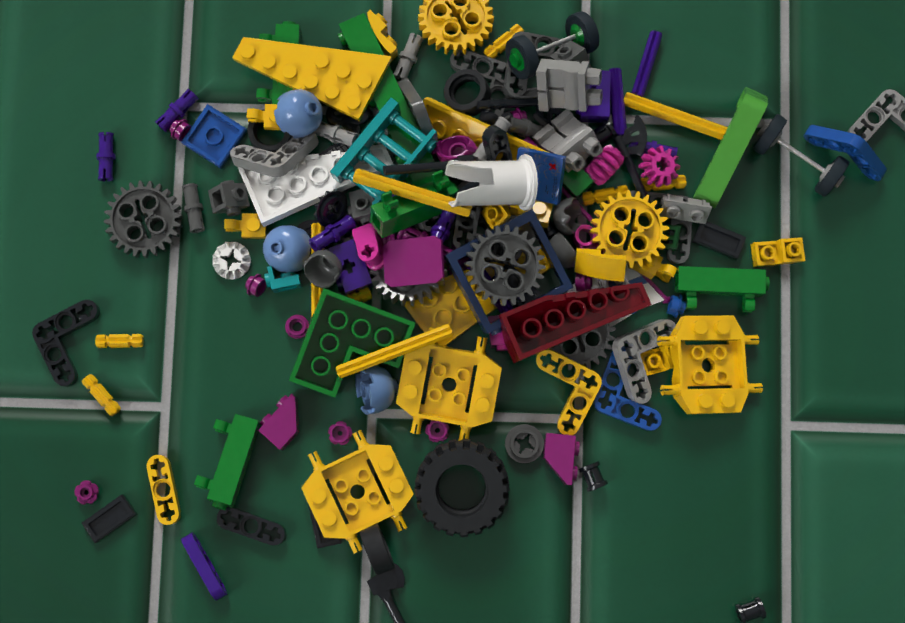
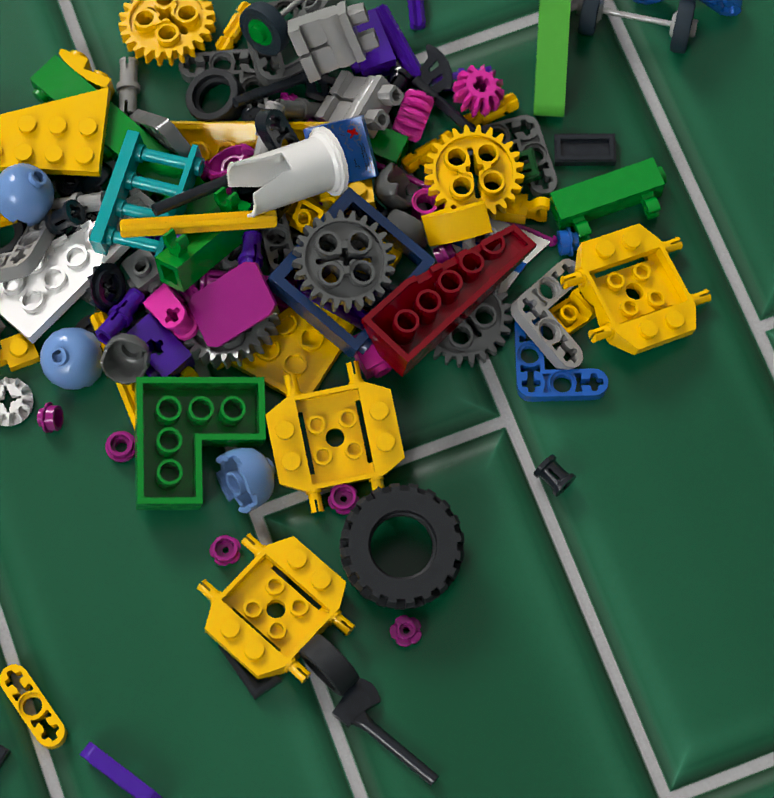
camera: 20 degrees left, 10 degrees down
(233, 461) = (107, 634): green brick -> none
(266, 537) = (184, 696): black beam -> none
(283, 424) = (150, 568): magenta slope -> none
(286, 281) = (84, 401): teal bracket -> none
(322, 142) = (65, 218): none -> black bush
(393, 351) = (251, 418): yellow axle -> none
(435, 544) = (410, 638): none -> magenta plate
(535, 440) = (444, 462): dark grey gear -> none
(559, 455) = (503, 466): magenta slope -> none
(580, 388) = (494, 380): yellow beam -> none
(674, 115) = (471, 32): yellow axle -> none
(692, 210) = (530, 128): light grey hinge -> none
(777, 252) = (660, 137): yellow slope -> none

